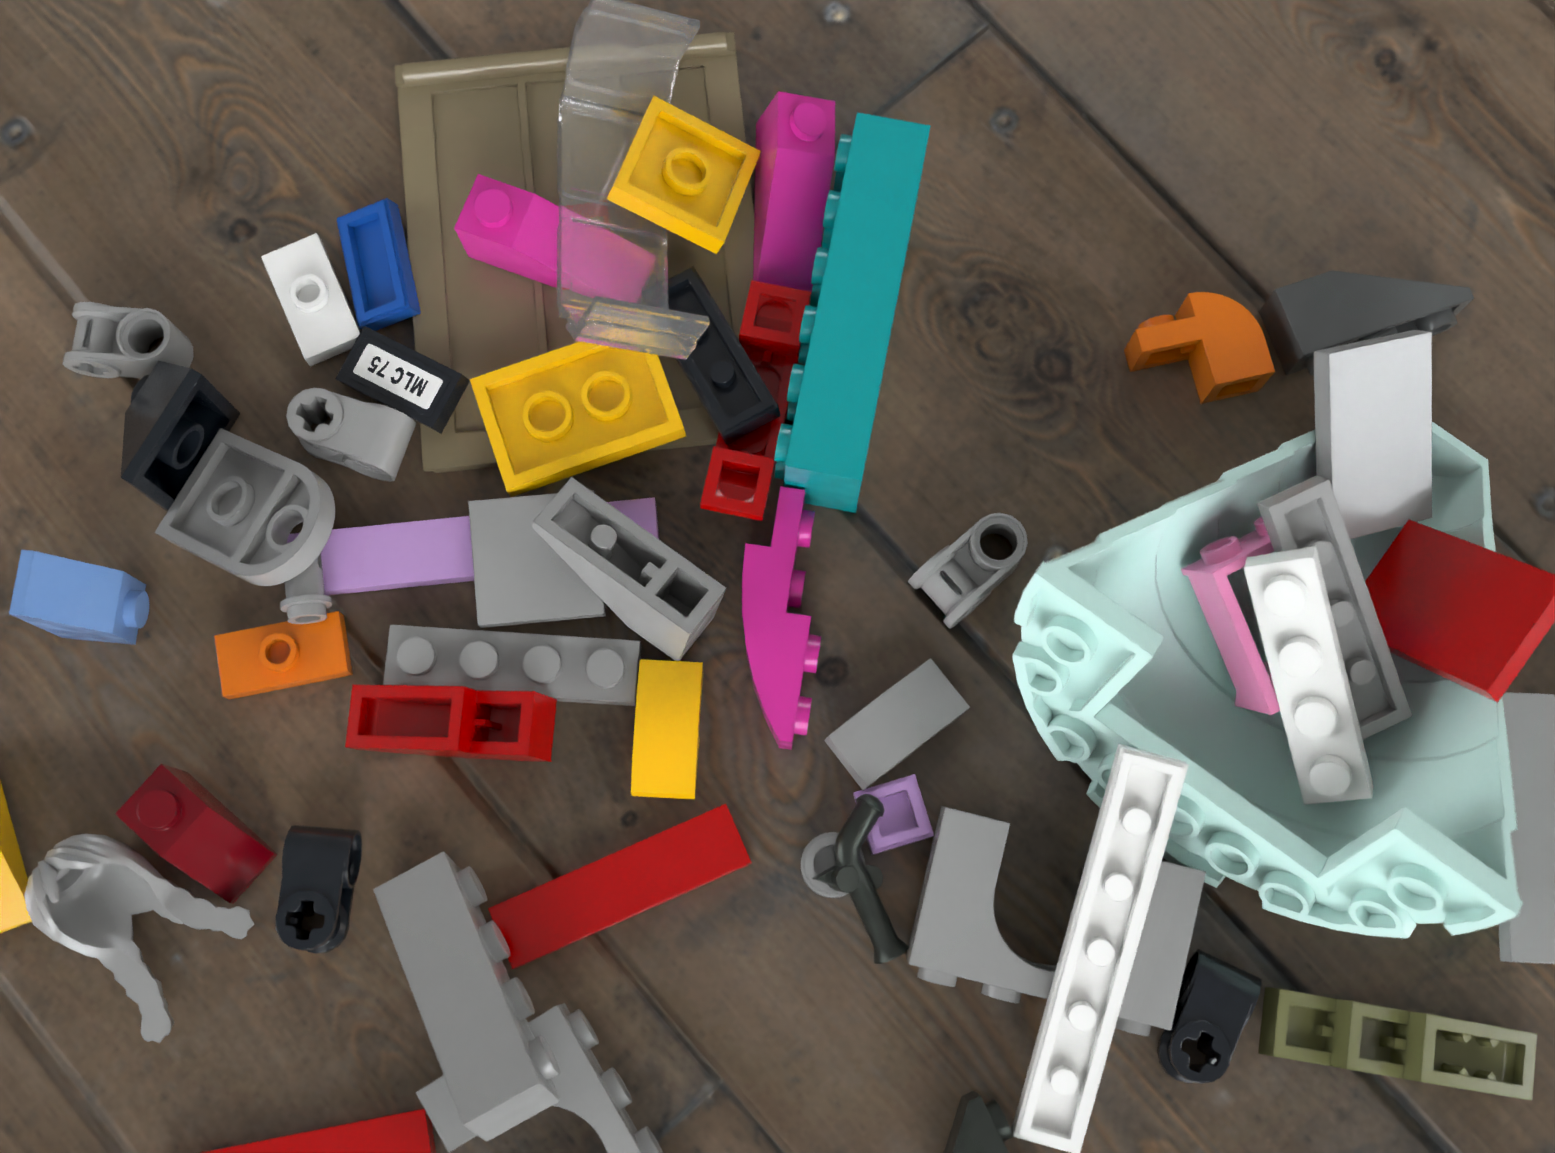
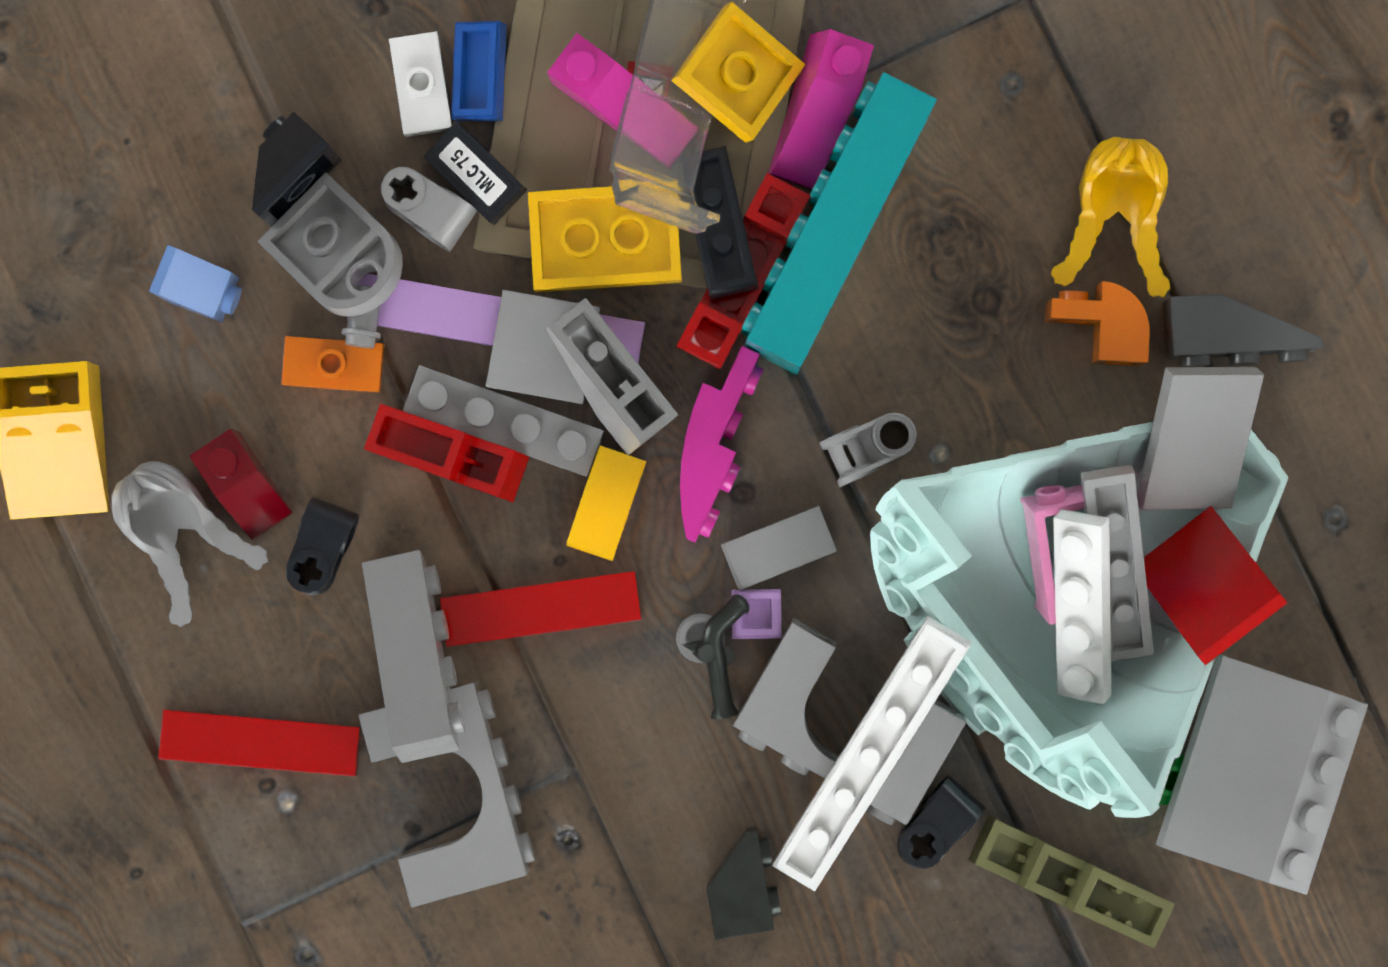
camera: 20 degrees right, 10 degrees up
(117, 341) = (260, 78): light grey piece -> none
(1178, 178) = (1128, 179): none -> yellow hair

